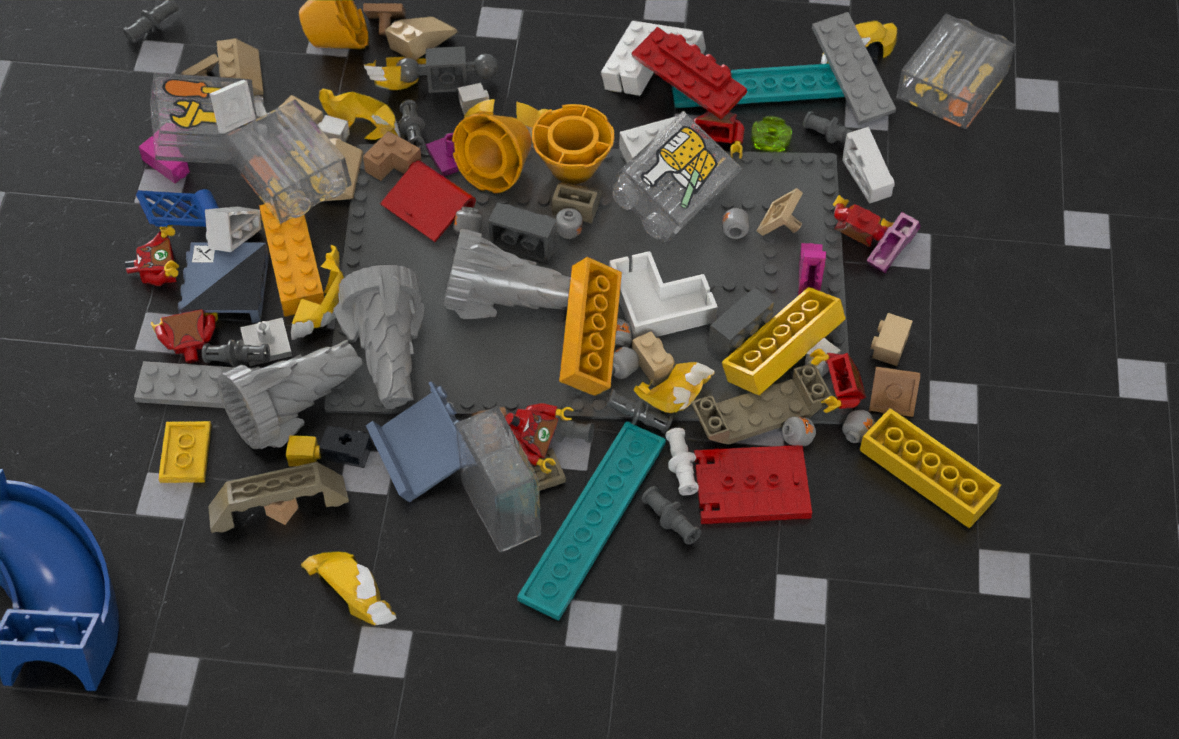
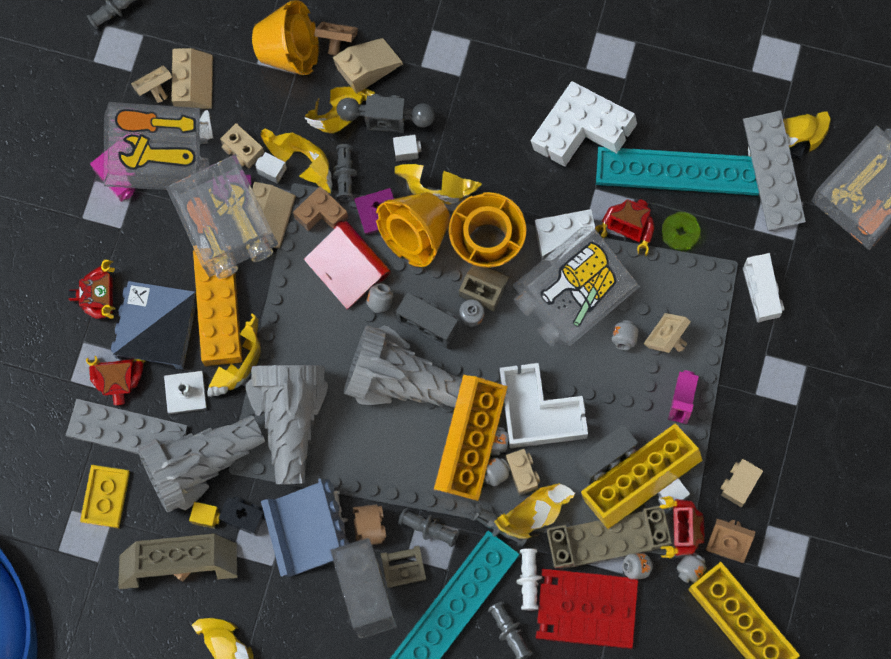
camera: 15 degrees right, 20 degrees up
(200, 202) = (145, 244): blue piece -> none
(231, 227) = (166, 273): white wedge -> none
(232, 106) = (176, 151): white tile -> none
(236, 353) = (157, 405): dark grey piece -> none
(535, 430) = (403, 536): torso -> none
(690, 71) = (612, 162): red plate -> none
(824, 126) = (738, 236): dark grey piece -> none
(859, 222) = (738, 354): red torso -> none
(893, 242) = (768, 375): magenta slope -> none

